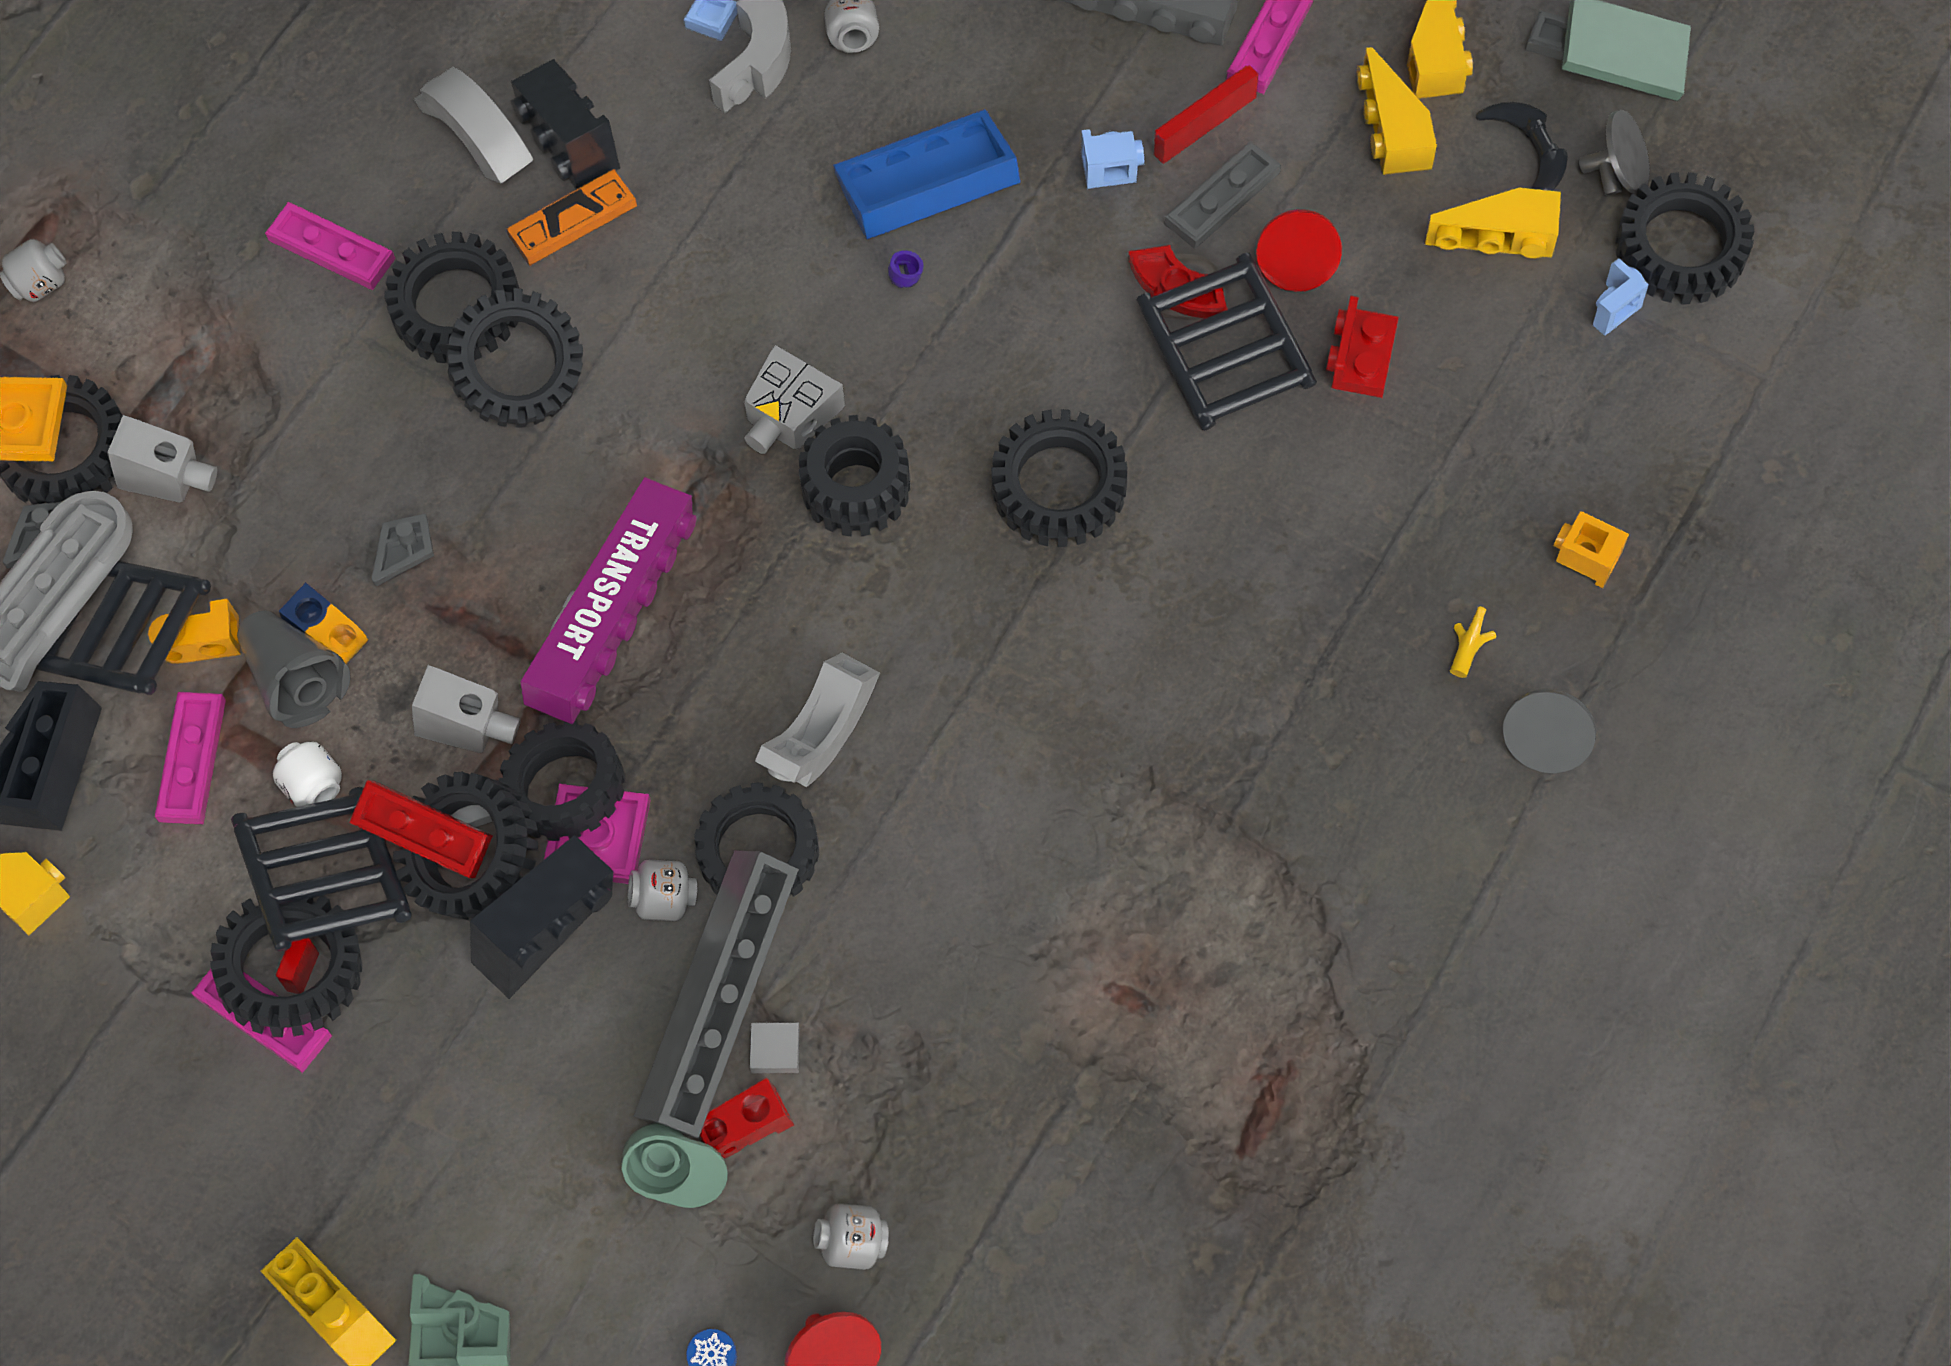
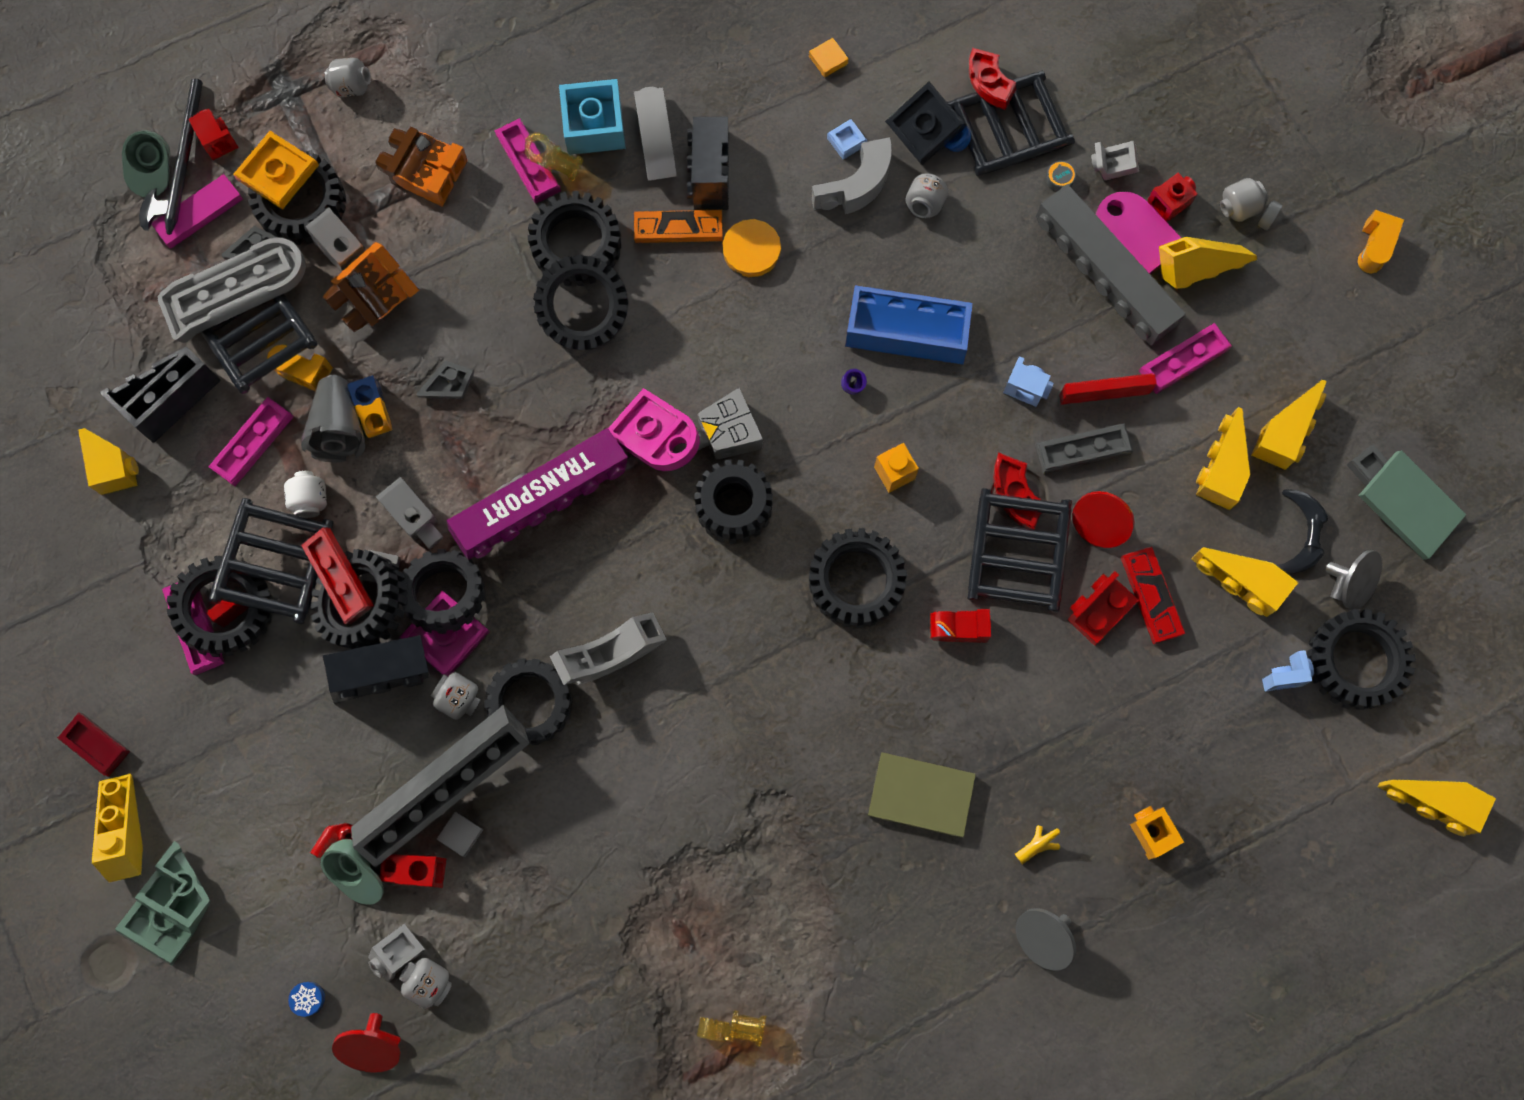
camera: 30 degrees right, 10 degrees up
(198, 318) = (422, 164): none -> hips
(223, 1231) = (93, 744): none -> dark red tile
(232, 485) = (371, 286): none -> hips
(365, 218) = (553, 157): none -> clear yellow connector
(384, 148) = (592, 116): none -> medium azure brick
(611, 1150) = (331, 835): none -> red arm
(679, 192) = (751, 247): none -> light orange tile
(704, 452) = (653, 429): none -> dark pink tile
(787, 1231) = (394, 953): none -> light grey bracket
(1021, 331) = (896, 467): none -> light orange brick
(1218, 459) = (961, 626): none -> red leg
(1263, 1052) = (741, 1027): none -> clear yellow connector
(1298, 670) = (921, 795): none -> olive tile
(1416, 307) = (1153, 595): none -> red tile
(1882, 328) = (1453, 803): none -> yellow slope

